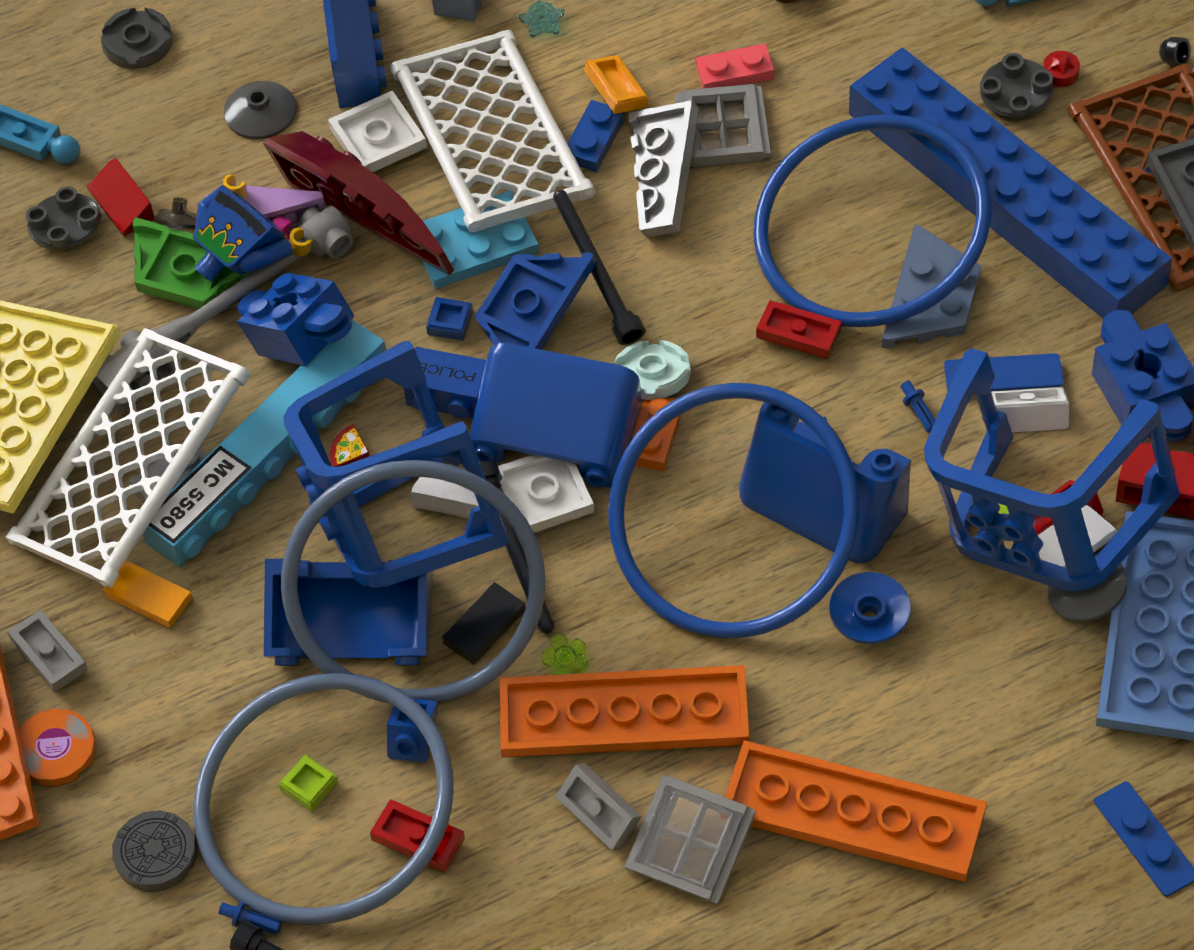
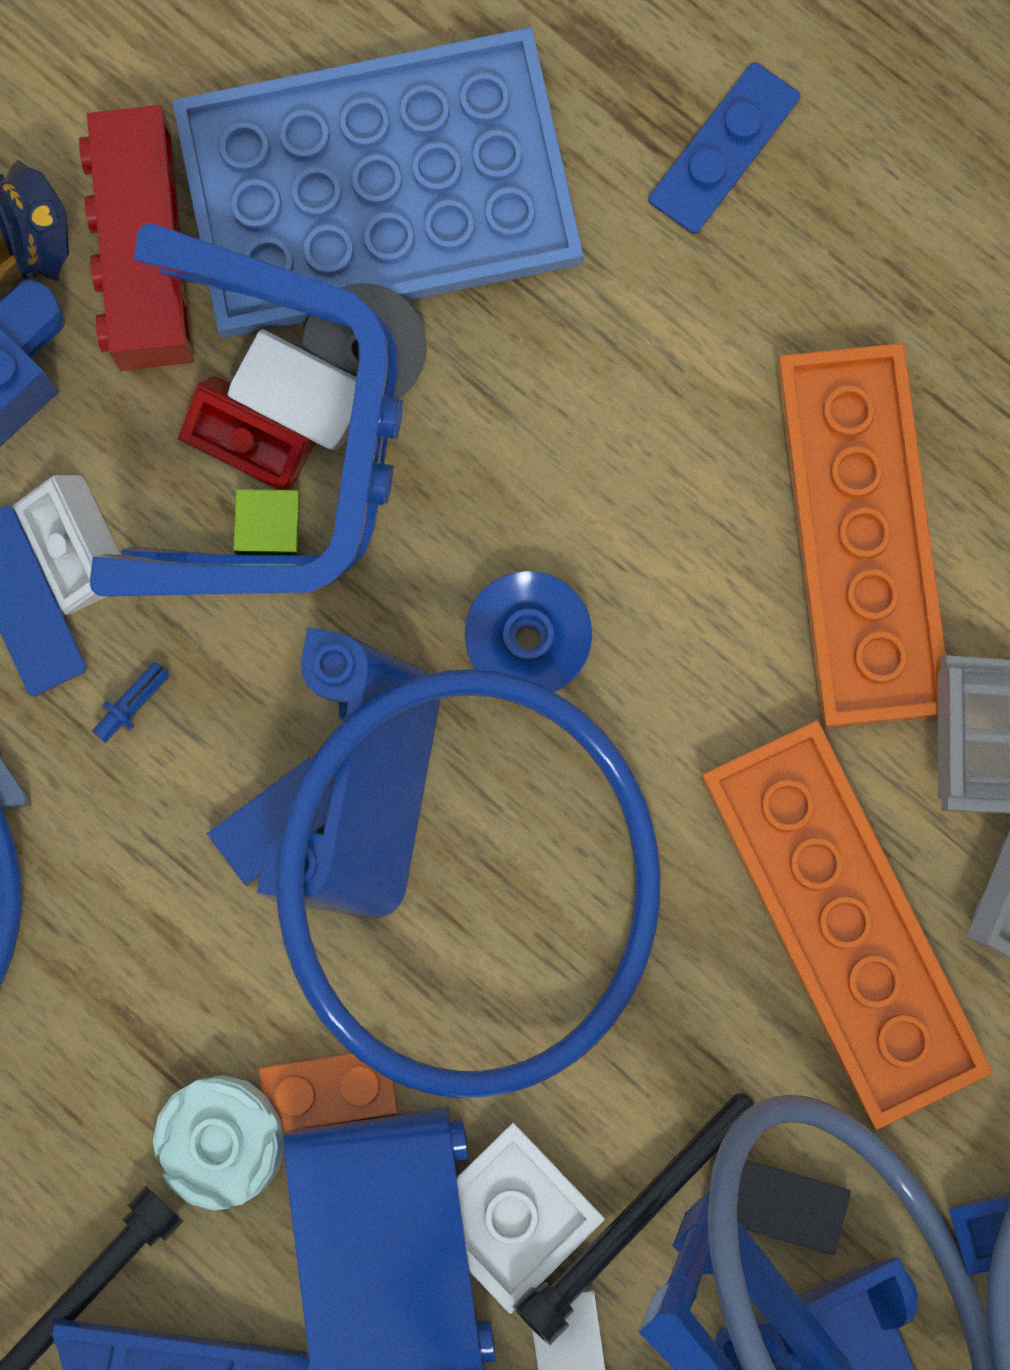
camera: 115 degrees left, 25 degrees up
(565, 656) = (780, 1055): clear neon green plant -> none
(798, 329) = (54, 940): red plate -> none

